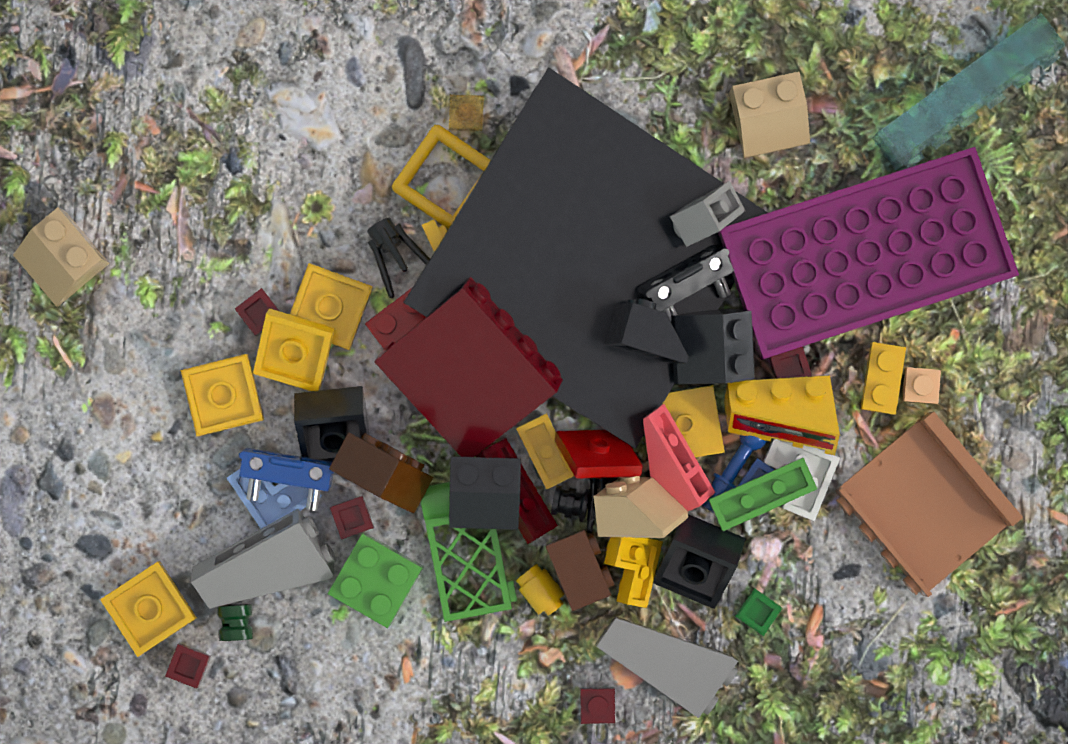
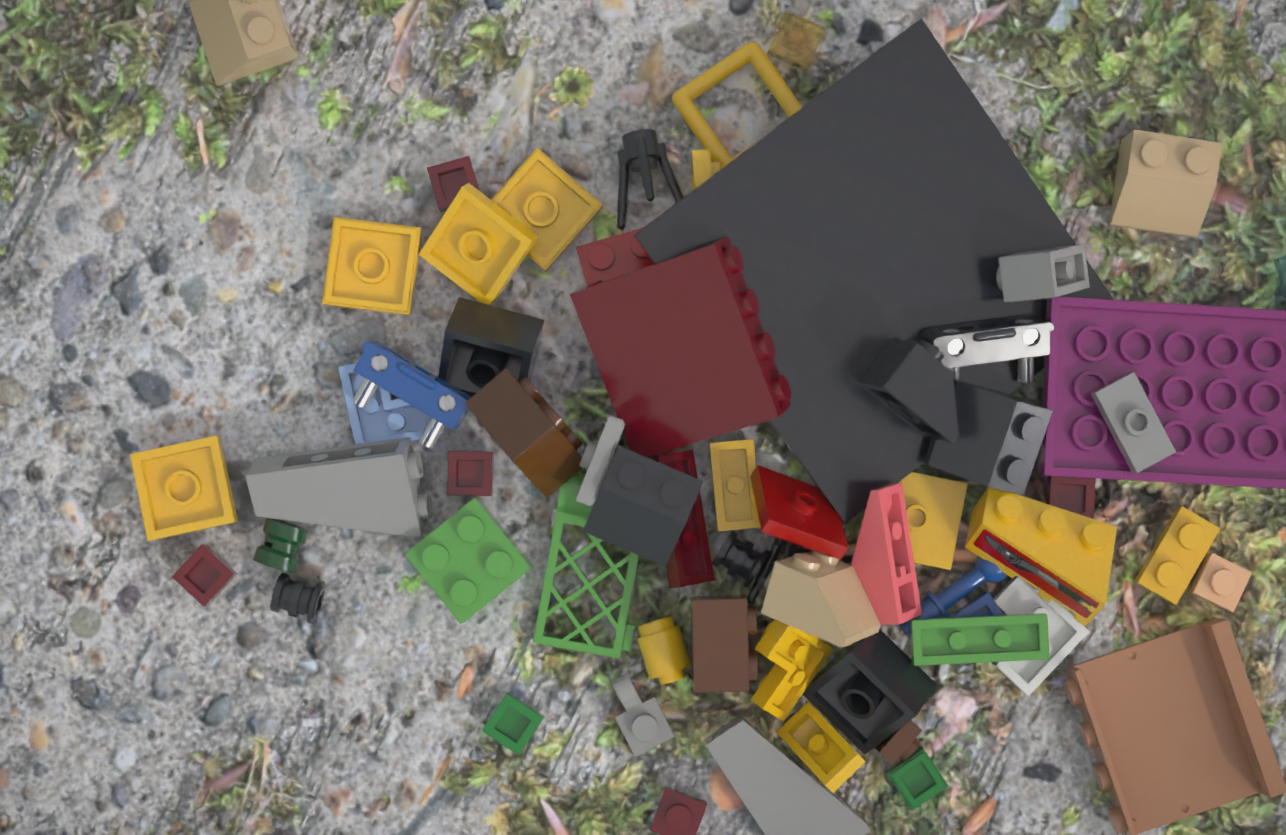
camera: 25 degrees right, 0 degrees up
(262, 655) = (298, 597): none -> black bush
(439, 471) = (597, 459): none -> light grey plate
(452, 685) = (513, 723): none -> green plate
(545, 647) = (642, 720): none -> light grey plate
(679, 615) = (820, 747): none -> yellow slope
(735, 590) = (901, 743): none -> reddish brown plate
(812, 297) = (1133, 422): none -> light grey plate

